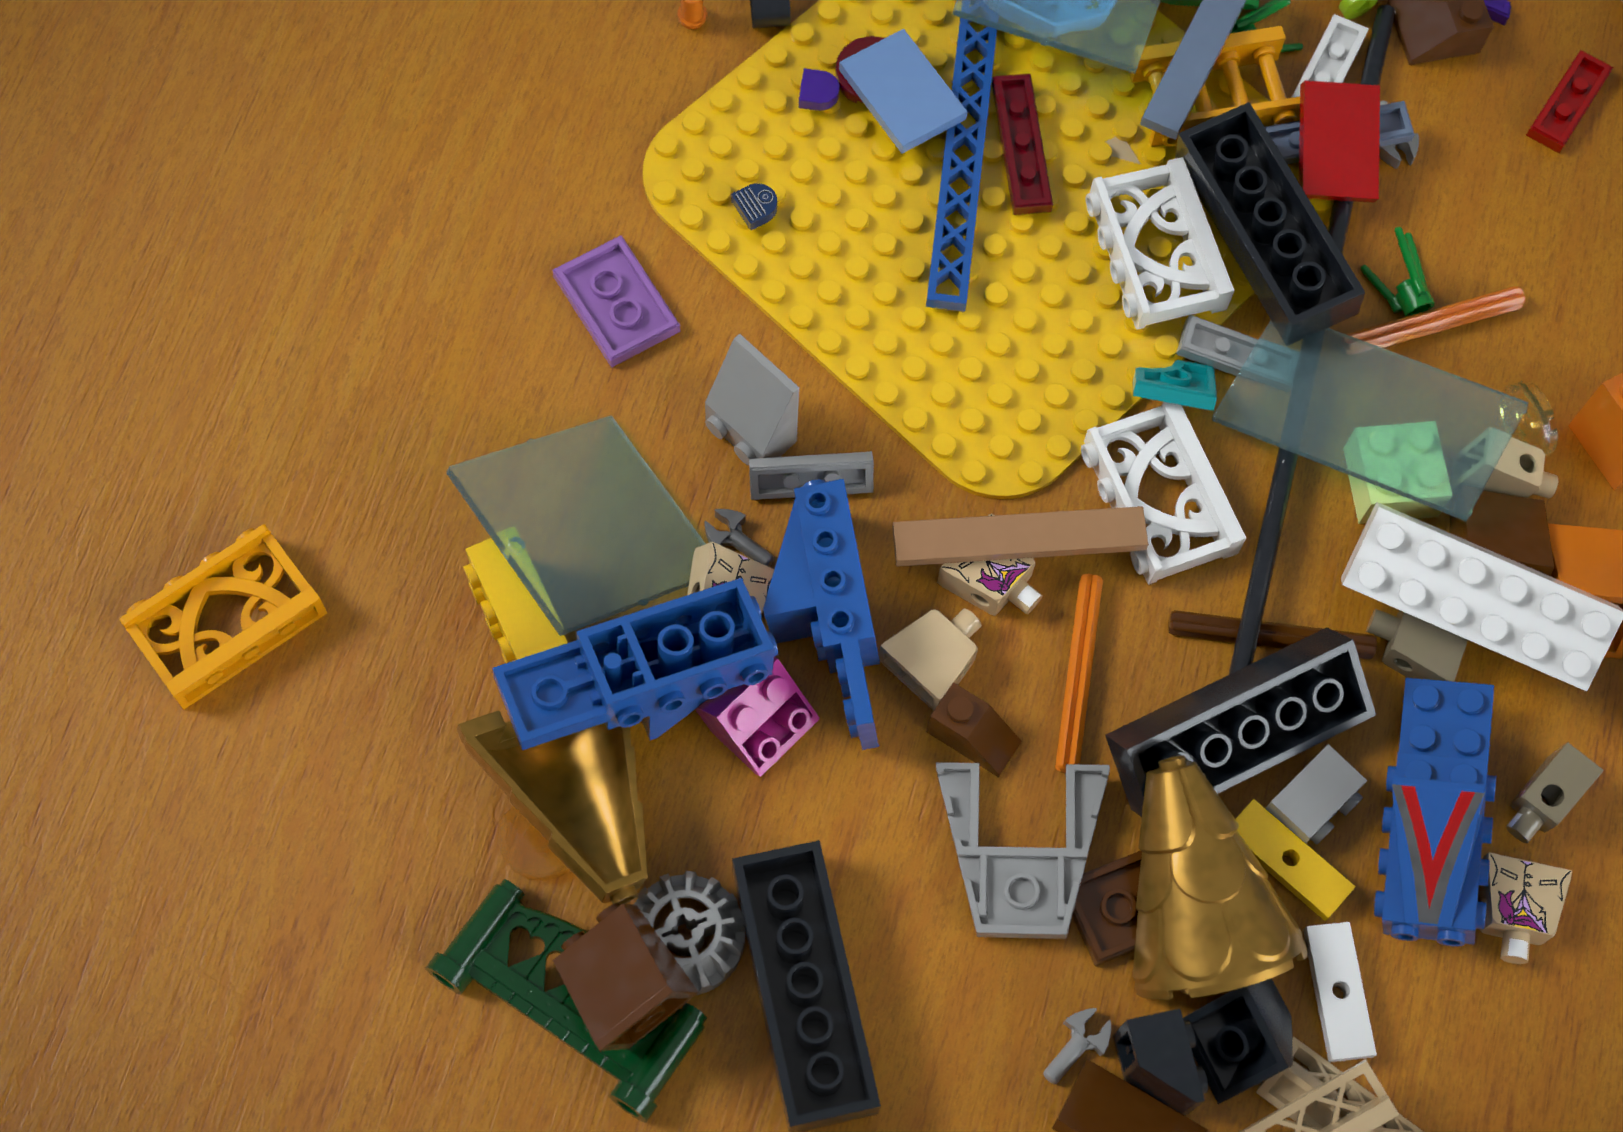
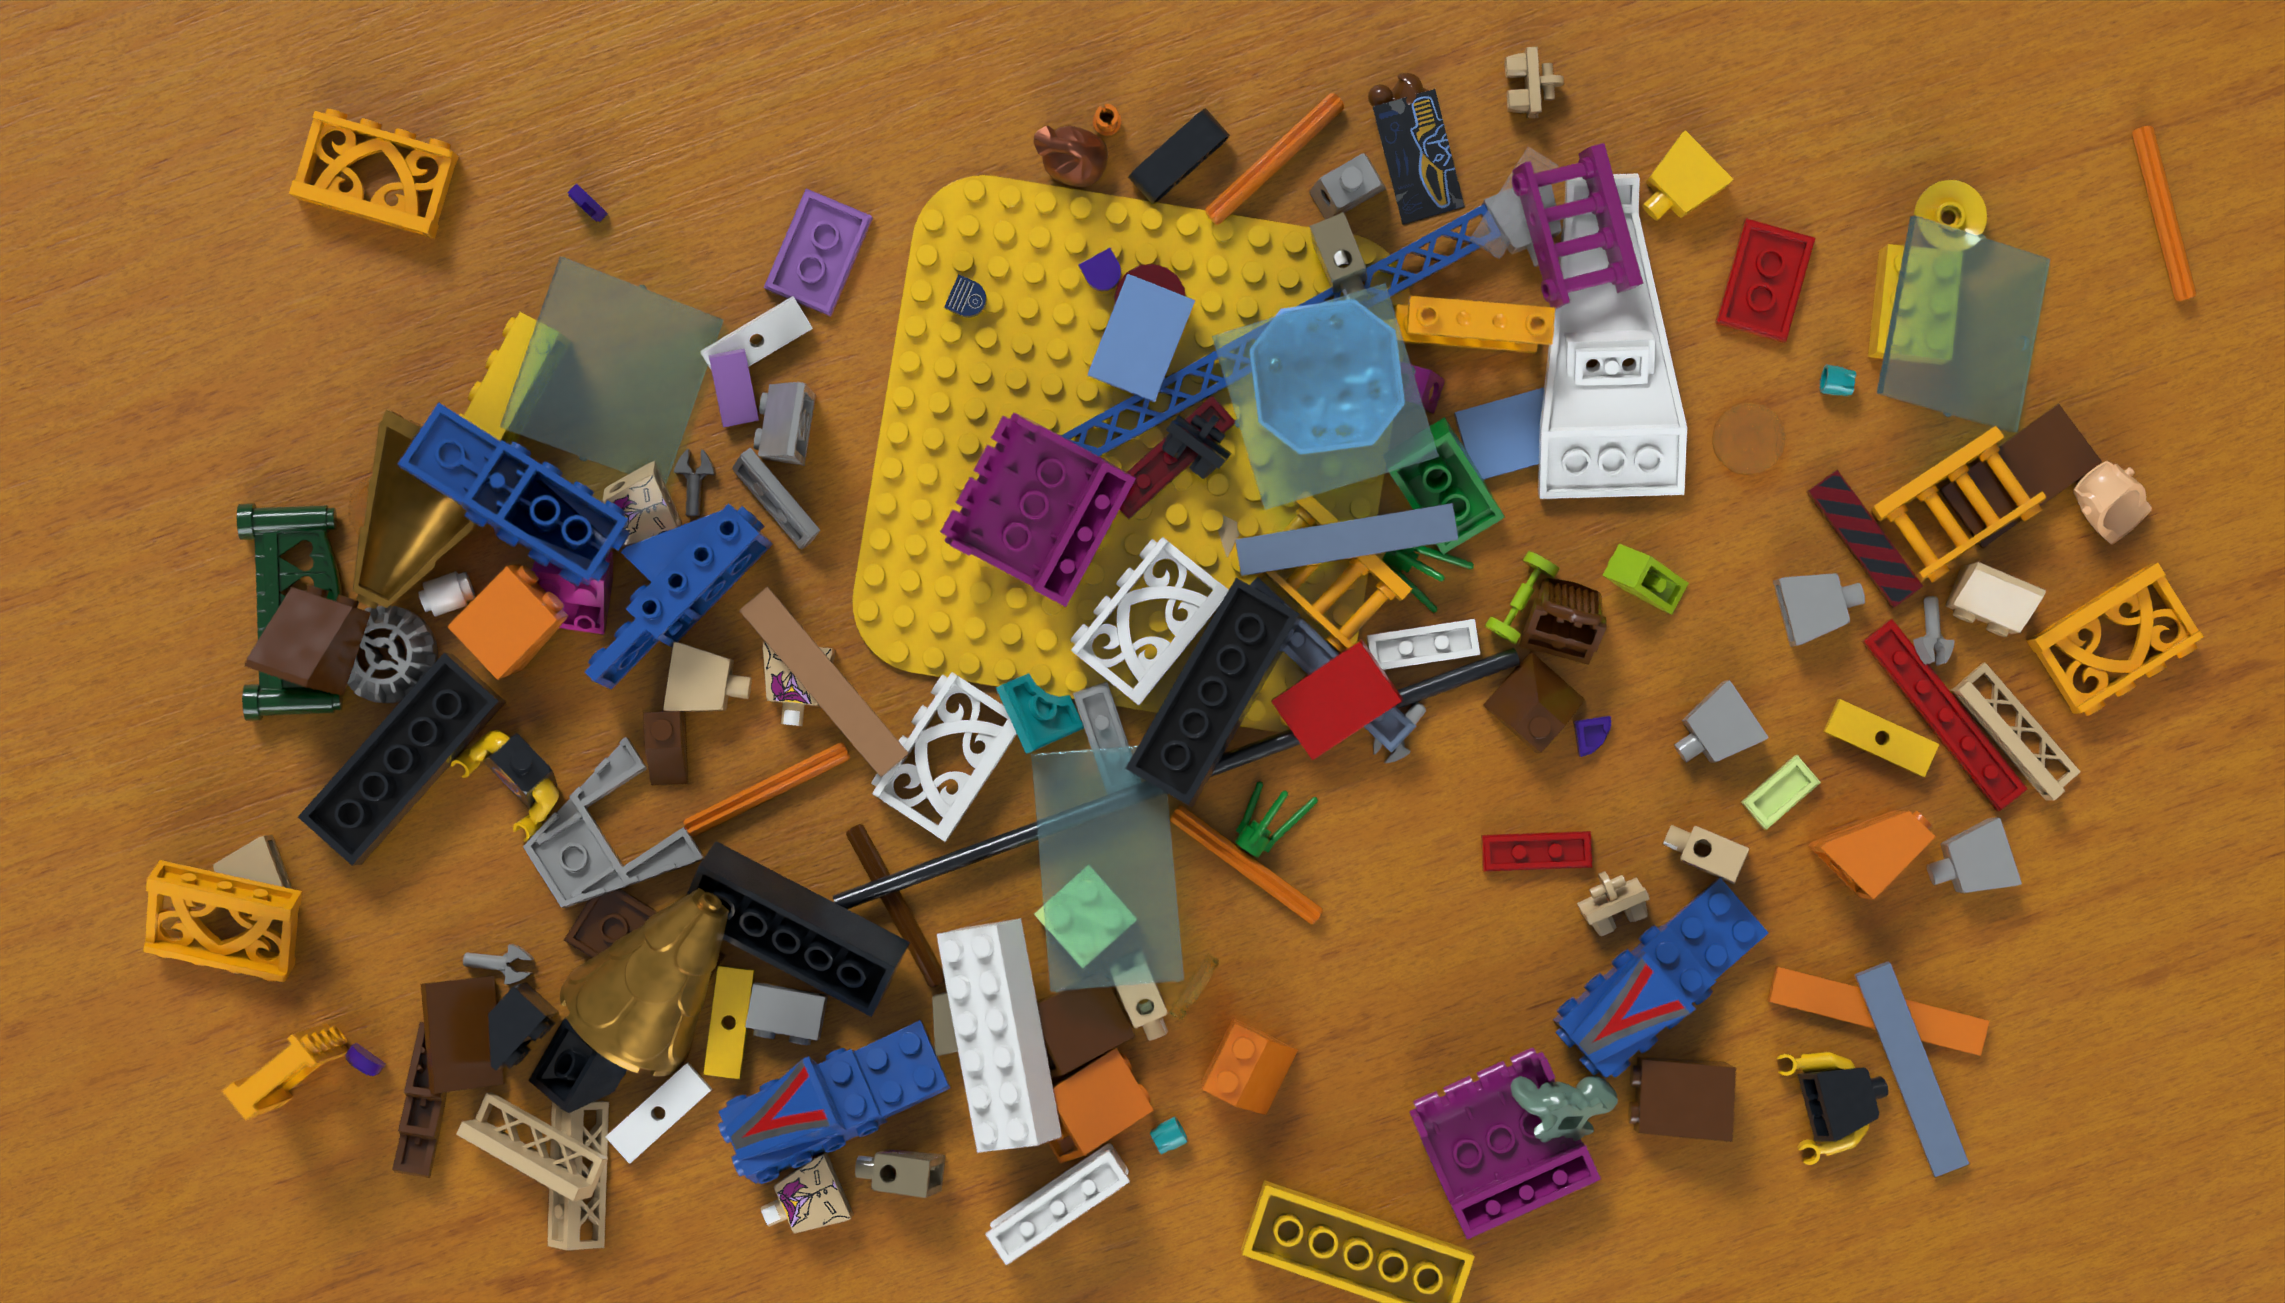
camera: 60 degrees right, 20 degrees up
(410, 452) = (587, 203): none -> dark purple tile
(655, 376) = (776, 326): none -> white tile
(671, 830) = (447, 593): none -> white brick
(681, 441) = (733, 387): none -> medium lavender tile
(701, 48) = (1071, 154): none -> copper piece
(749, 768) = (509, 621): none -> orange slope
(900, 877) = (519, 770): none -> torso
(999, 251) = (1037, 507): none -> magenta slope
(1015, 107) = (1184, 434): none -> black hips

